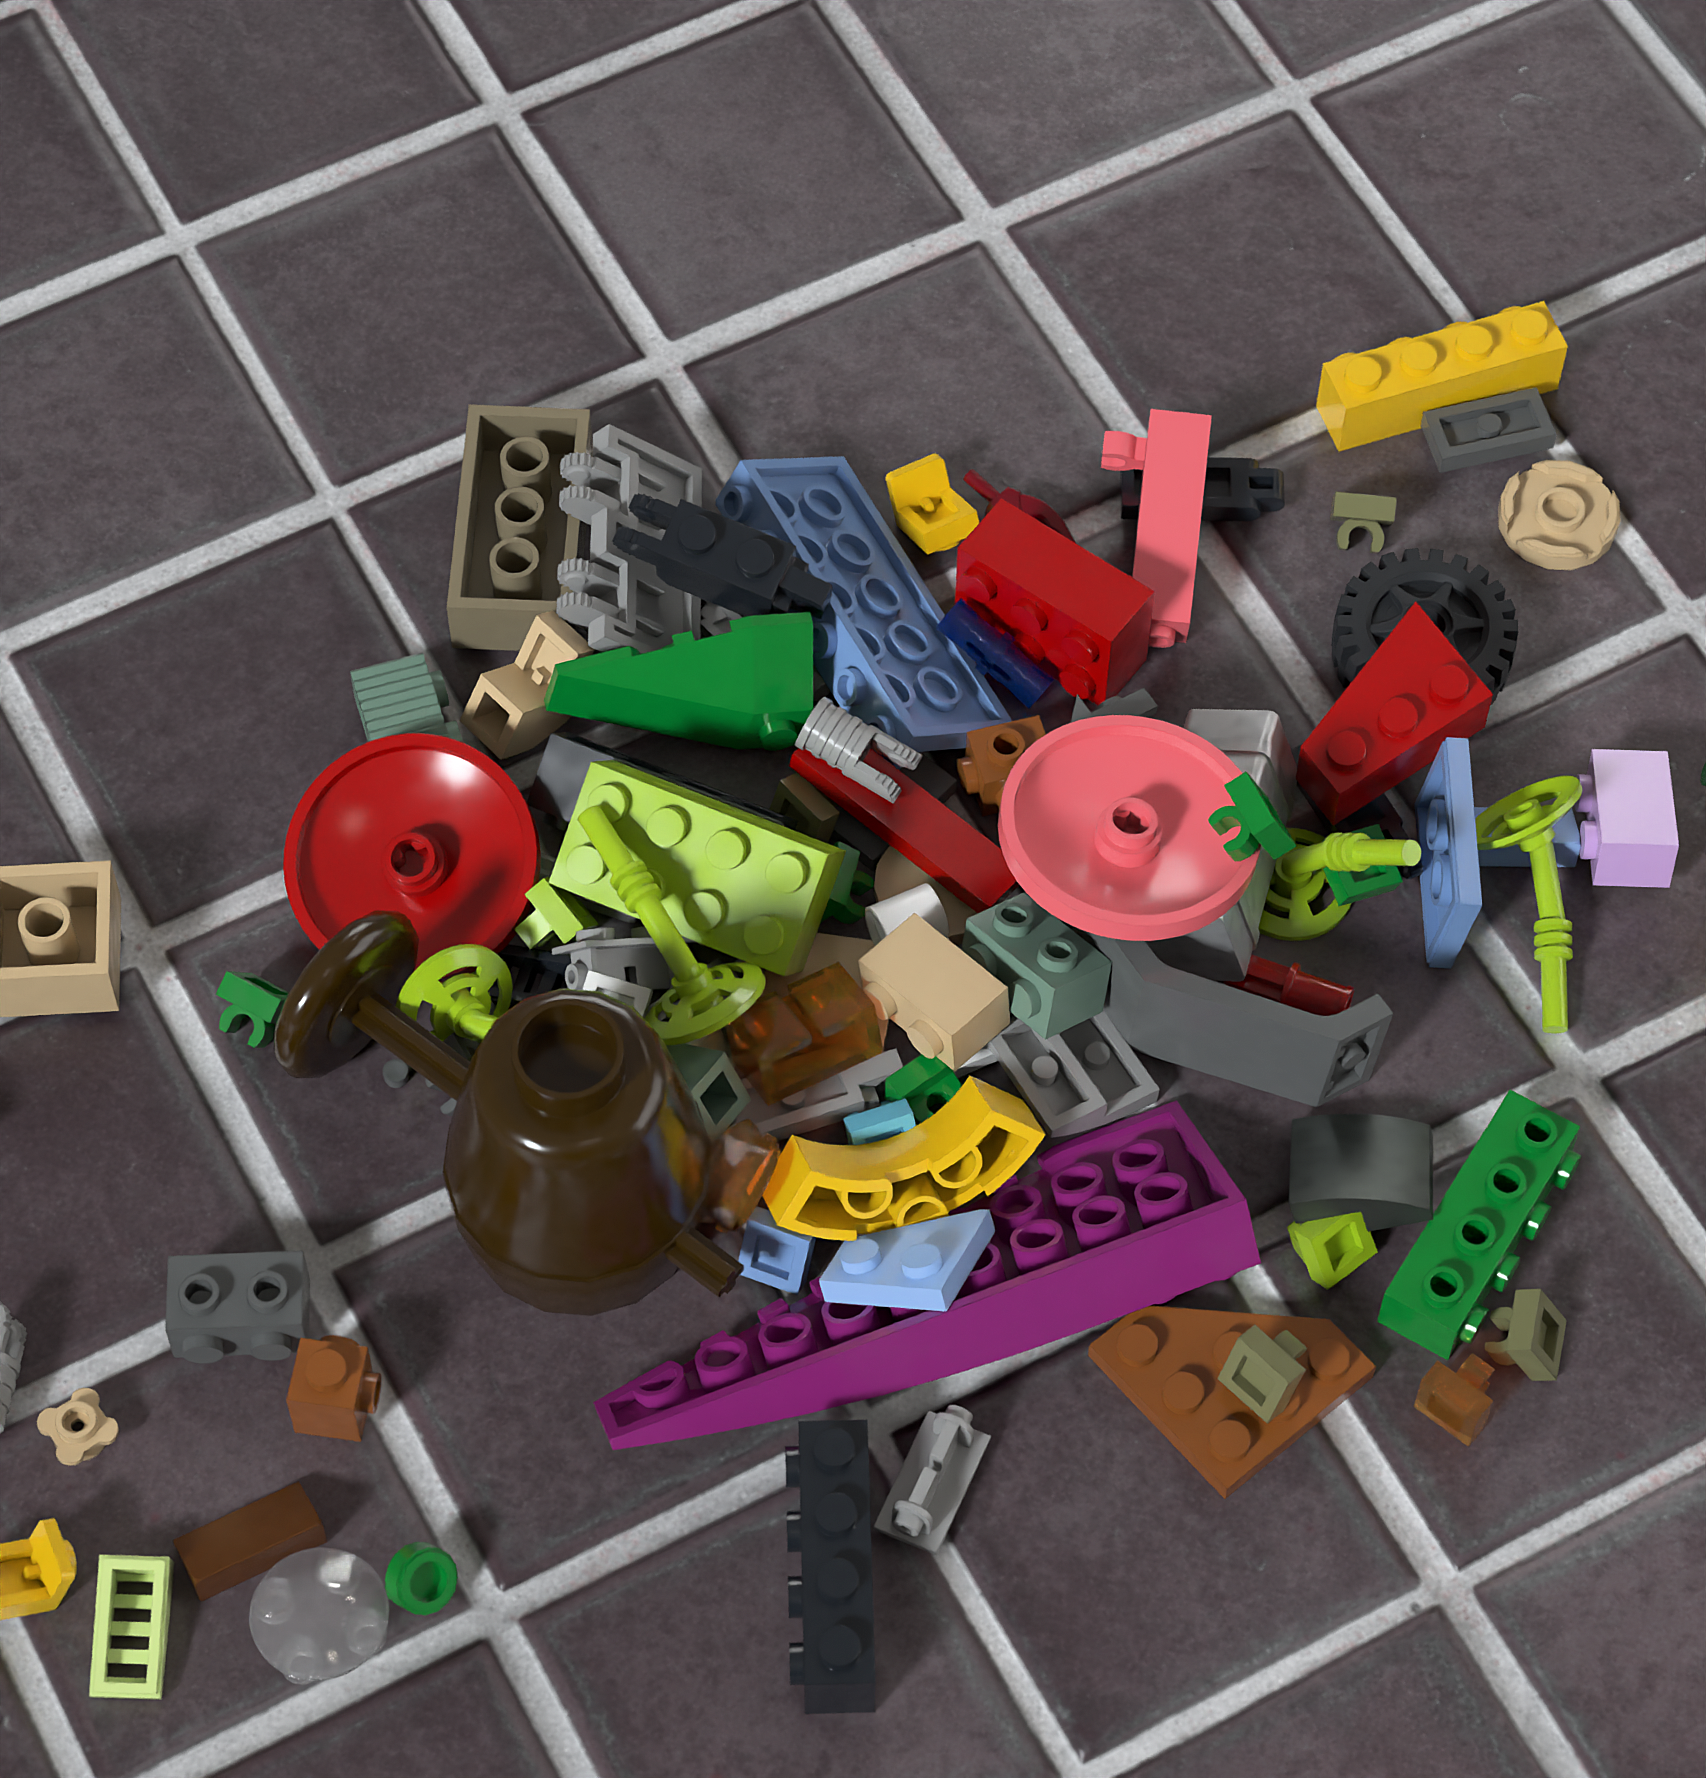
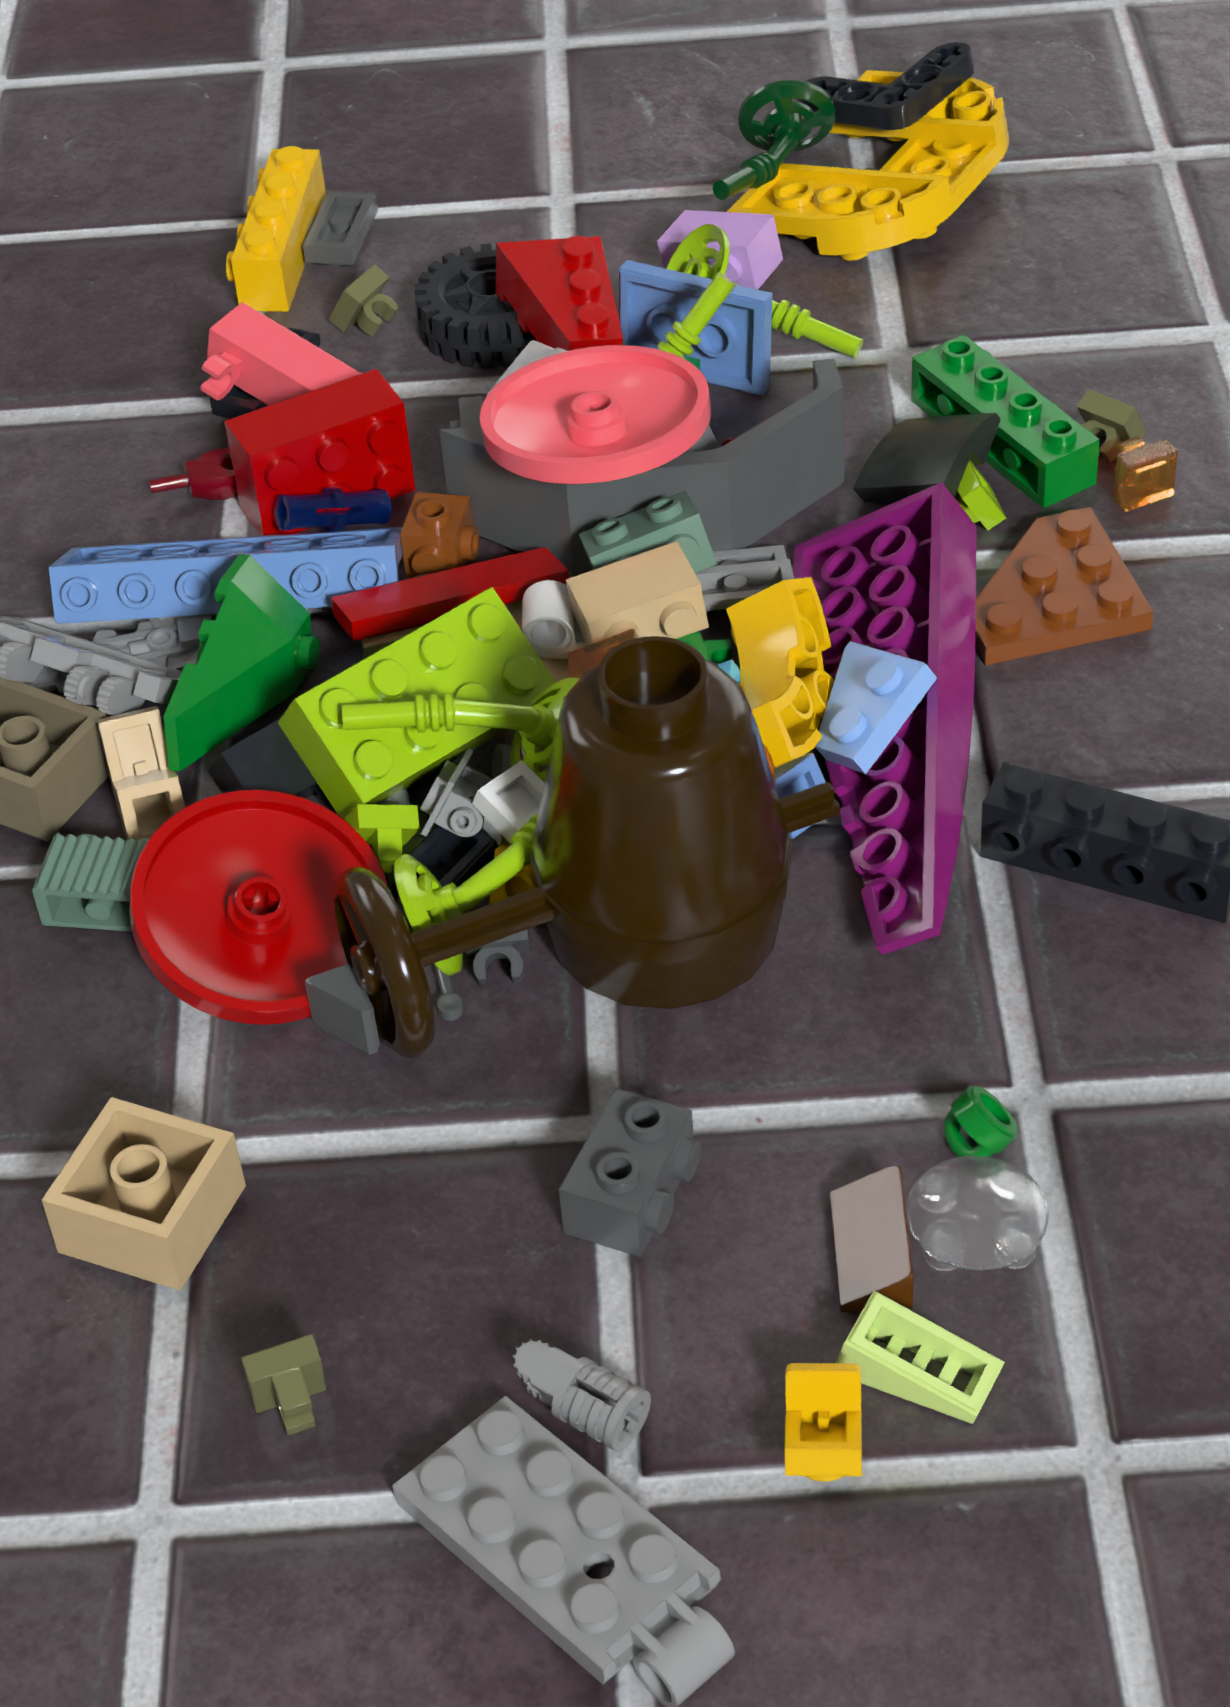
camera: 60 degrees left, 15 degrees down
(78, 1445) = (687, 1357): tan plate -> none
(253, 998) = (318, 1065): green tile -> none
(332, 1388) = (759, 1123): dark orange brick -> none
(723, 560) = (145, 589): black hinge -> none
(845, 743) = (379, 578): light grey hinge -> none
(928, 506) = (169, 515): yellow bracket -> none
(933, 1479) = (1038, 749): light grey hinge -> none
(1256, 818) = (650, 327): green tile -> none
(1264, 1371) = (1082, 539): olive tile -> none
(1558, 515) = (434, 225): tan tile -> none

